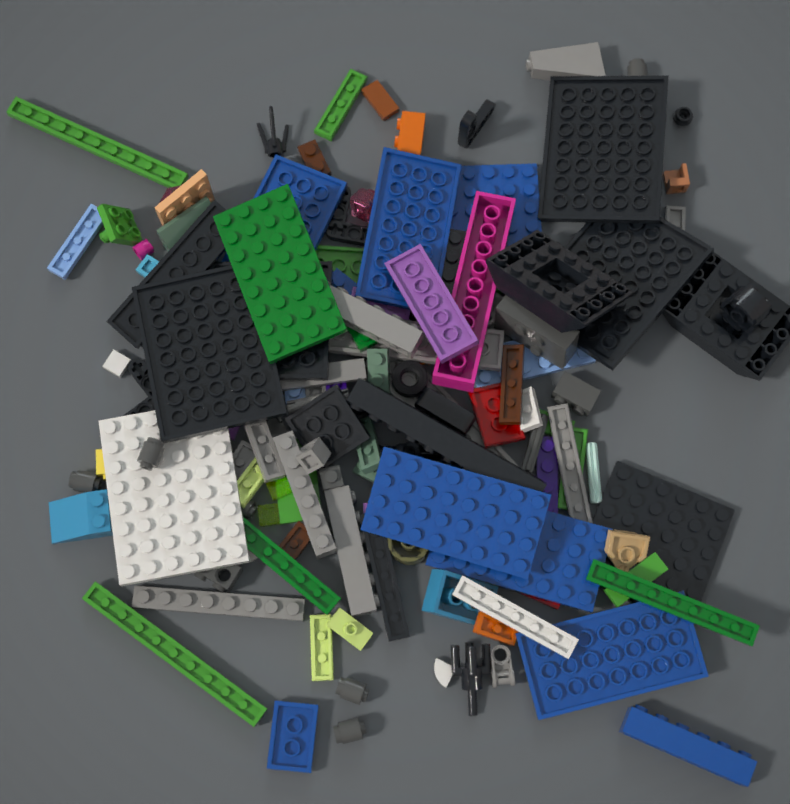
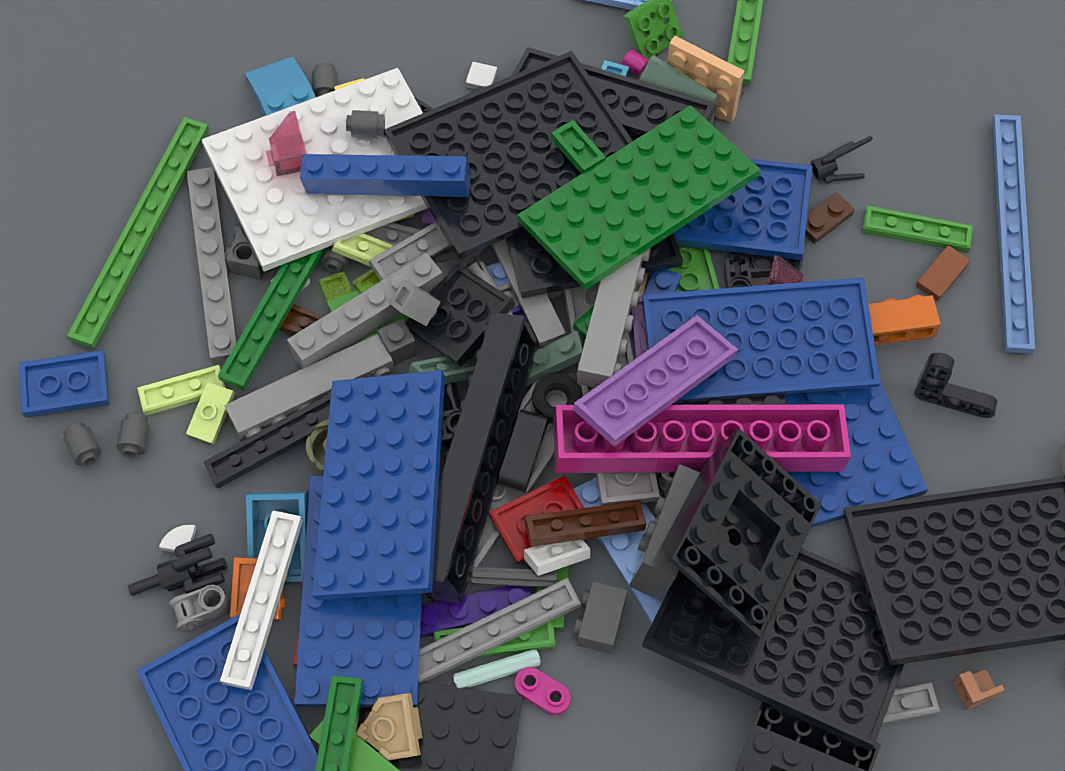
camera: 75 degrees right, 10 degrees down
(155, 516) = (286, 147): none -> clear pink slope
(207, 447) = (386, 175): none -> blue brick
(224, 304) = (577, 146): none -> green plate
(363, 45) = (1013, 235): none -> medium blue plate
(615, 446) = (540, 692): none -> dark pink plate

